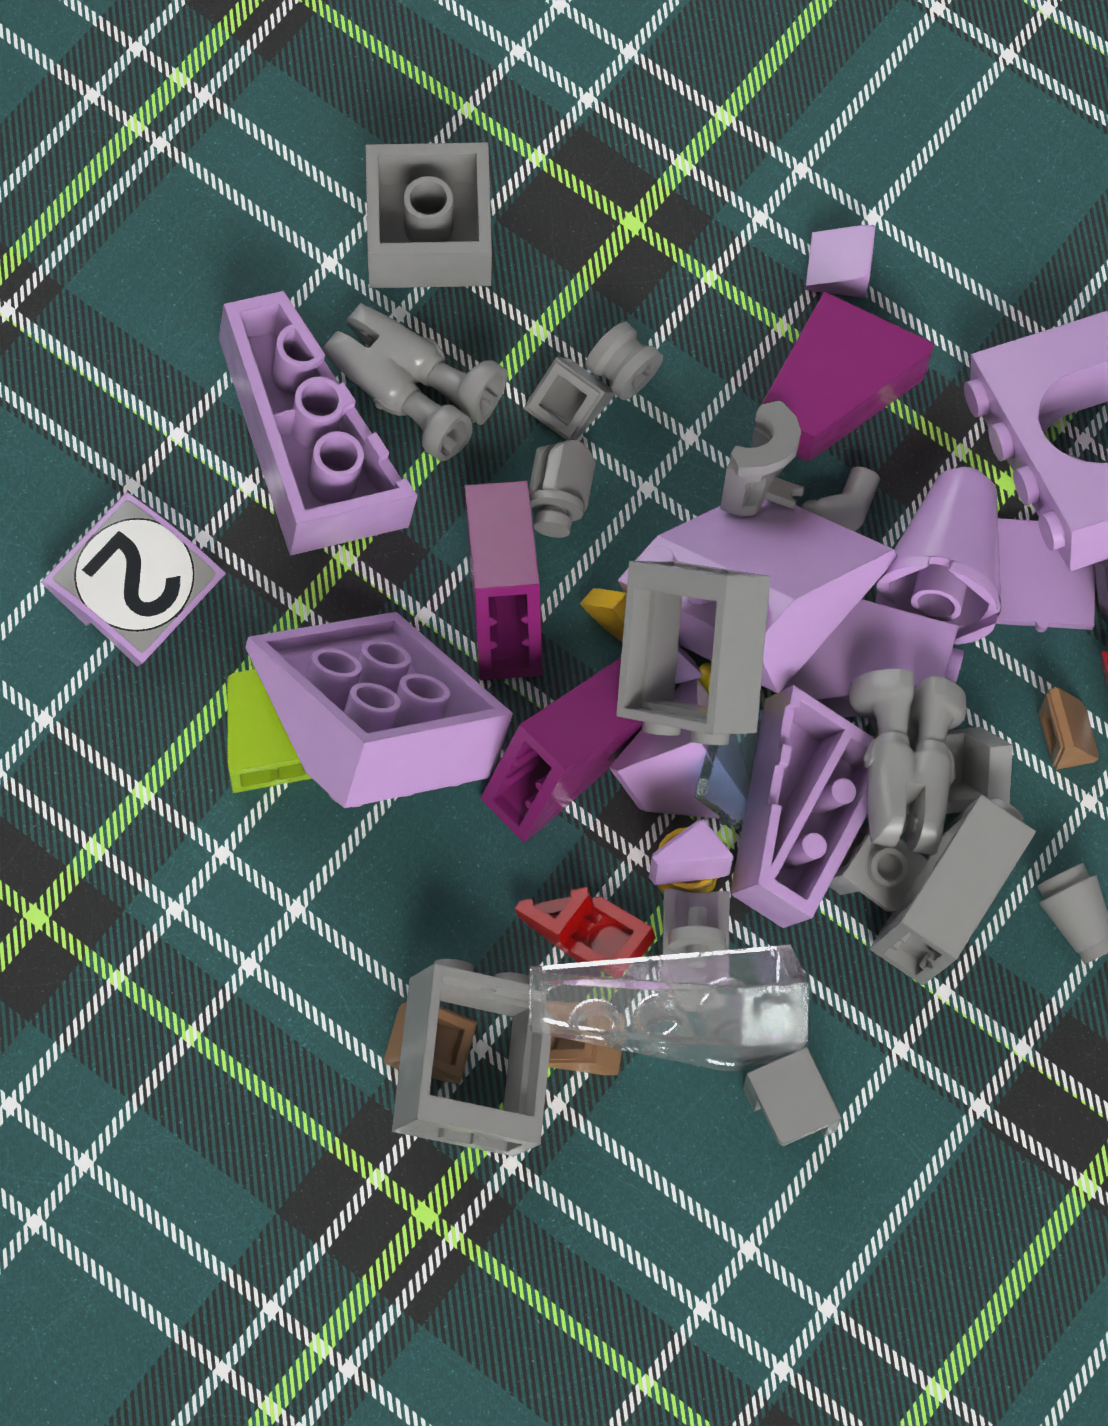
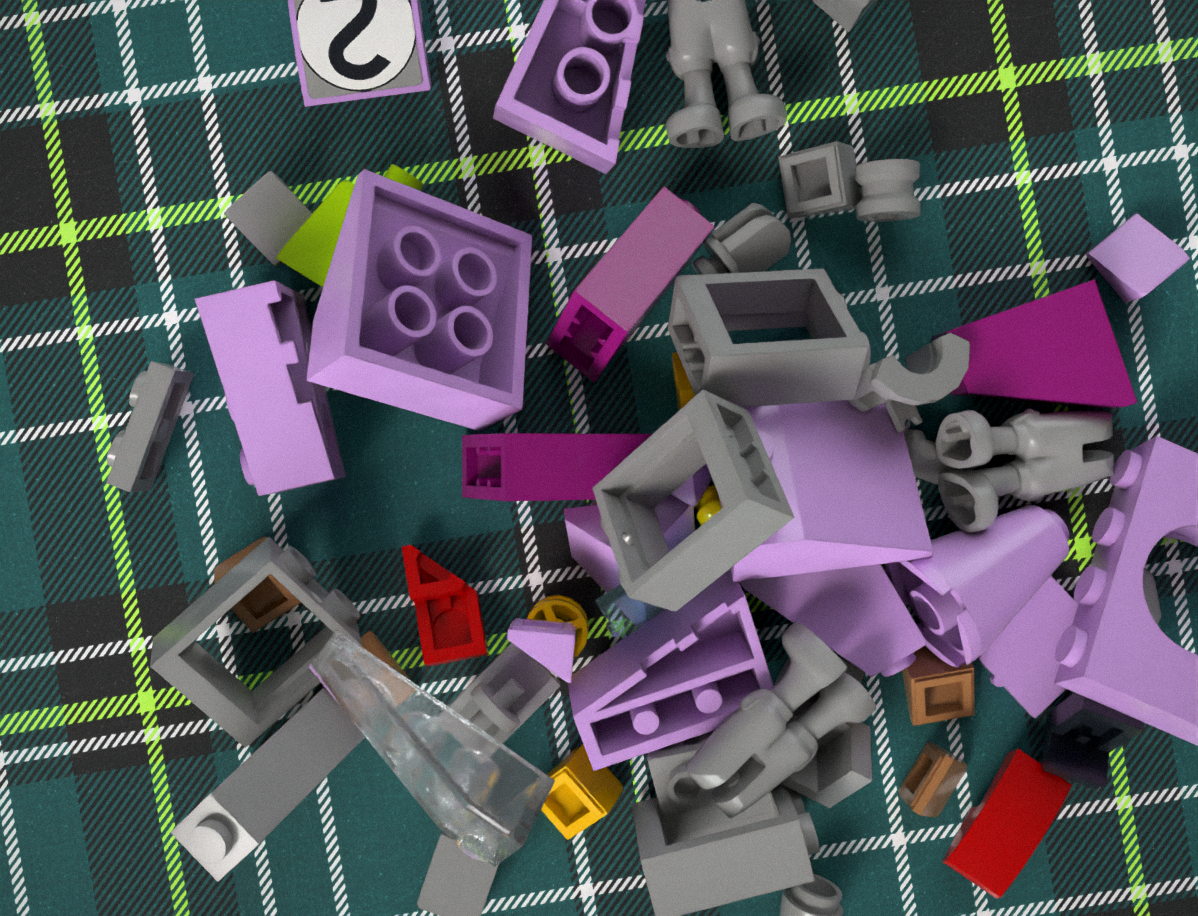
camera: 45 degrees right, 20 degrees up
(192, 763) = (268, 215): none -> light grey slope
(227, 964) = (142, 446): none -> light grey plate
(312, 871) = (262, 358): none -> lavender wedge
(585, 1130) = (268, 785): none -> light grey slope
(636, 510) = (775, 371): none -> light grey window
(830, 977) = (579, 793): none -> yellow slope
(912, 436) = (1045, 461): none -> light grey piece
(1003, 664) = (938, 689): none -> medium nougat slope

